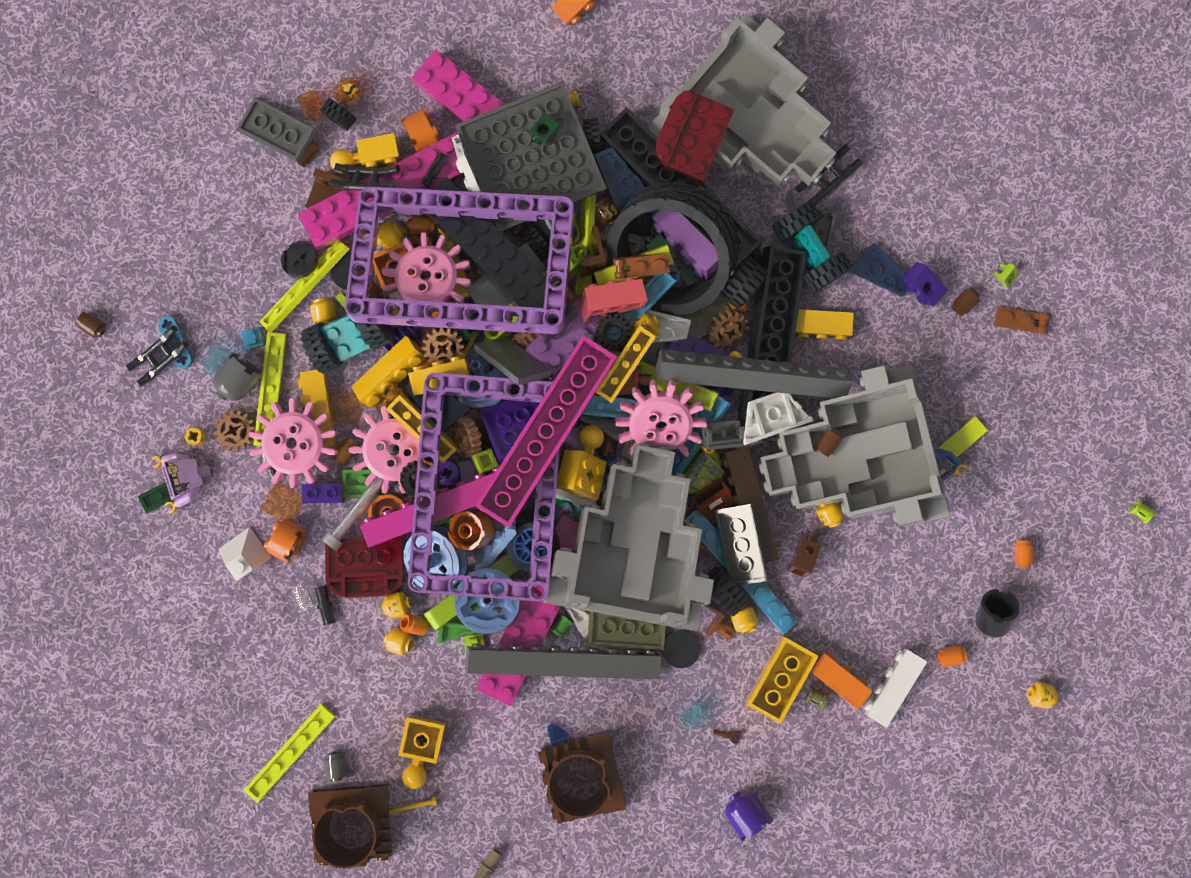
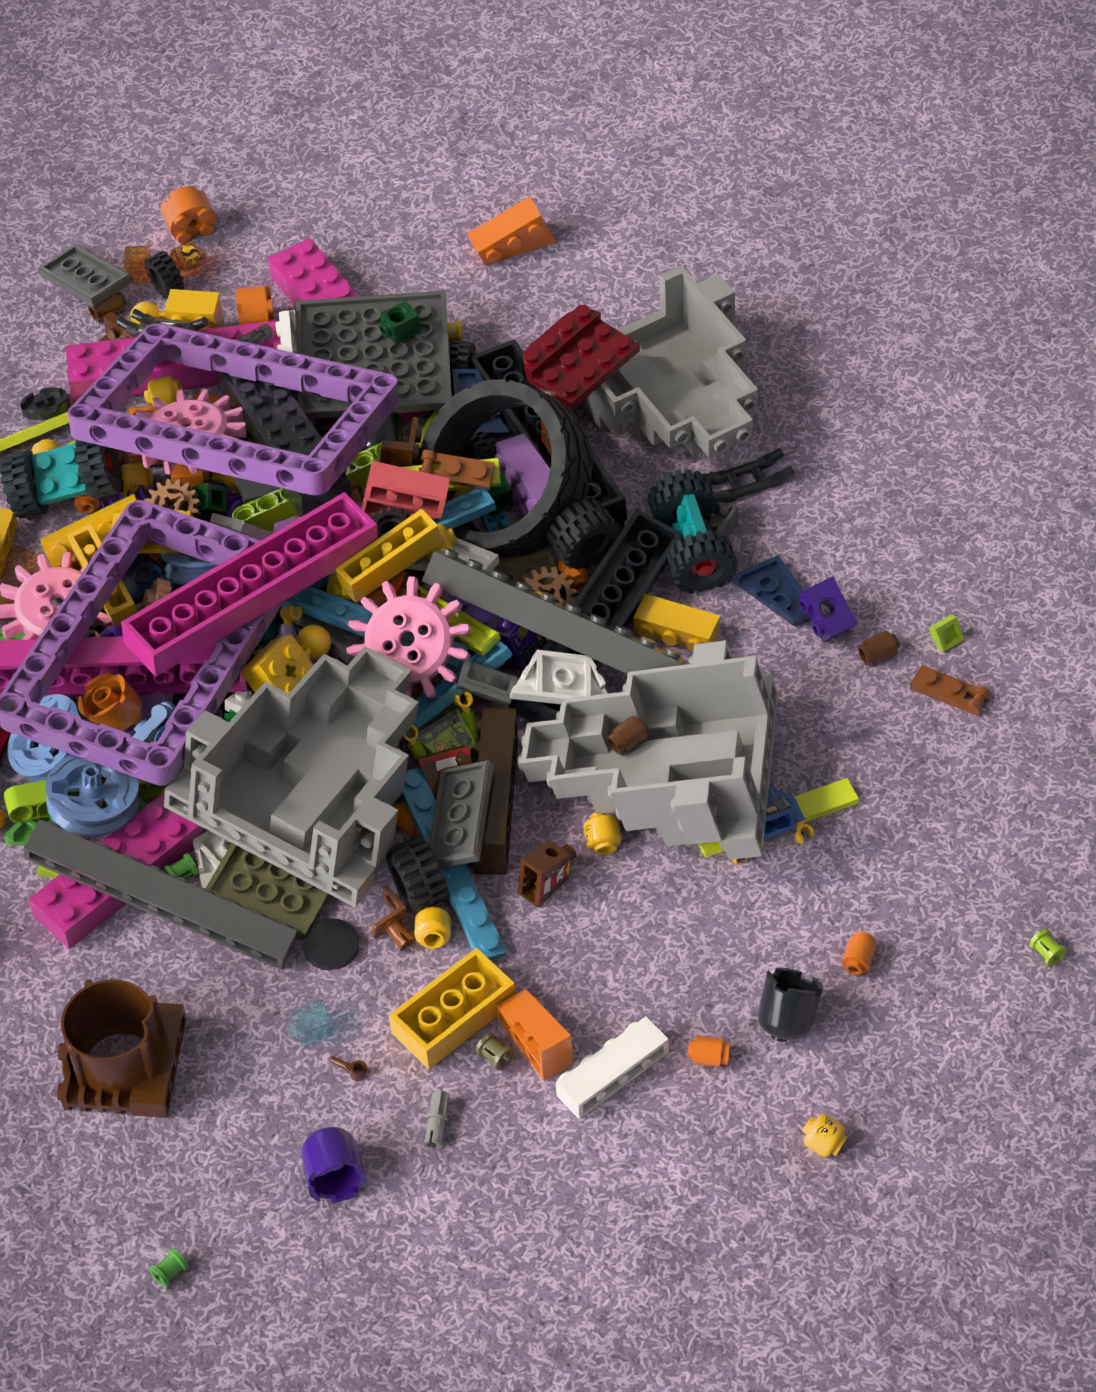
camera: 25 degrees right, 35 degrees down
(332, 48) = (188, 213): none -> orange brick
(797, 757) = (436, 1119): none -> light grey axle

